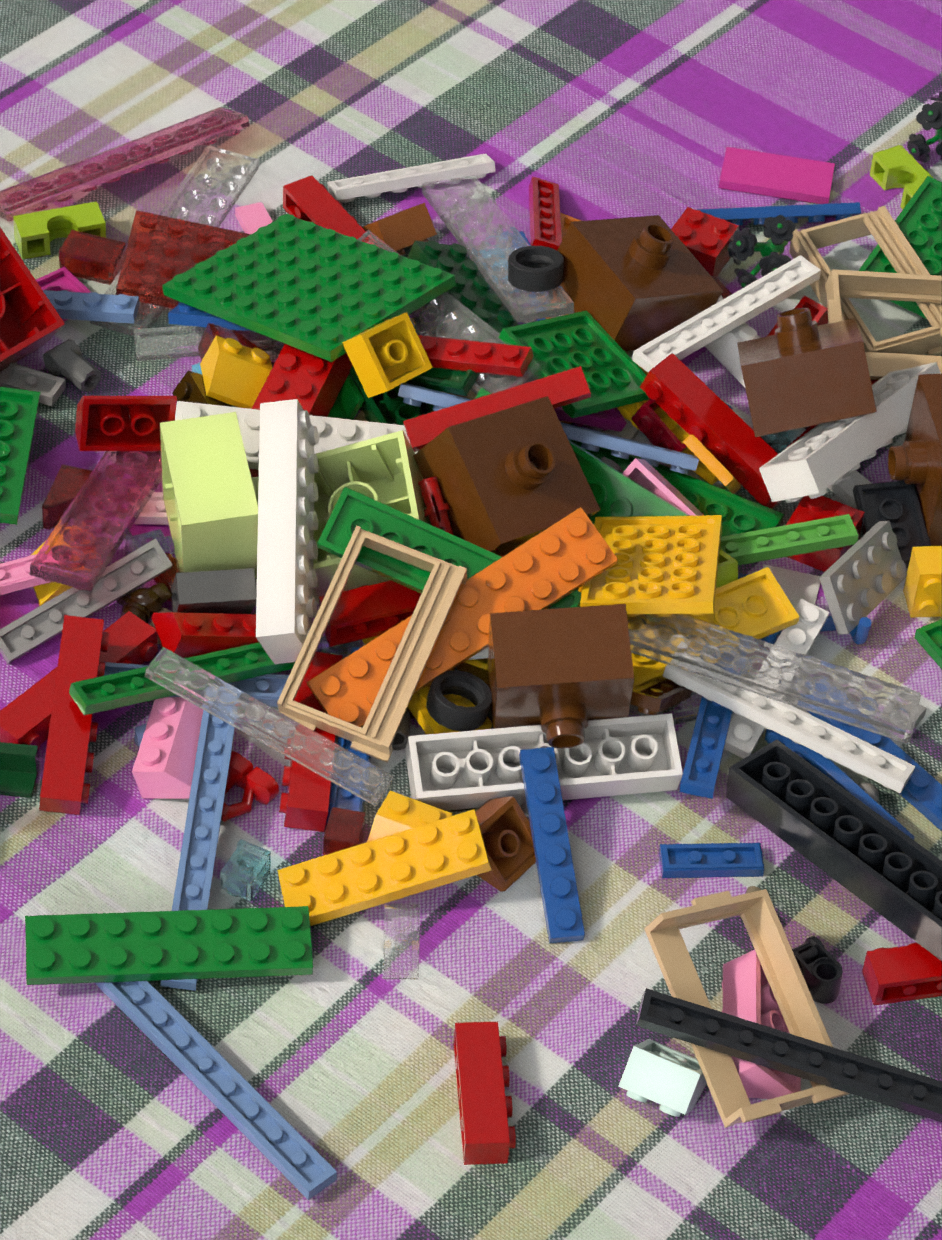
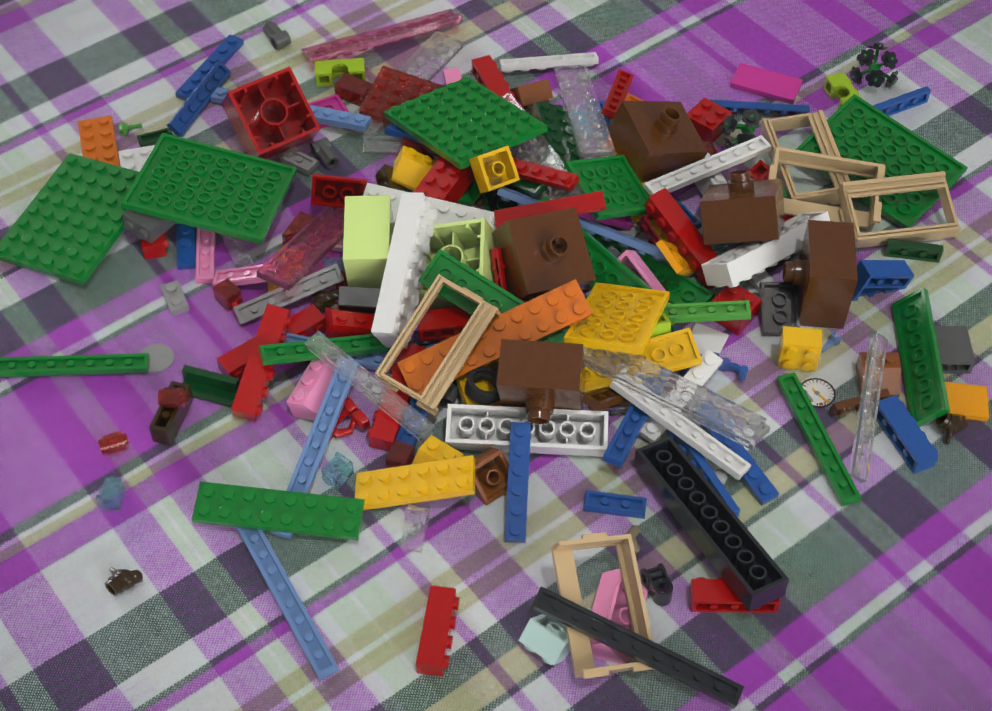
camera: 15 degrees right, 5 degrees up
(535, 268) = (590, 126): black tyre -> none
(863, 577) = (750, 340): light grey plate -> none

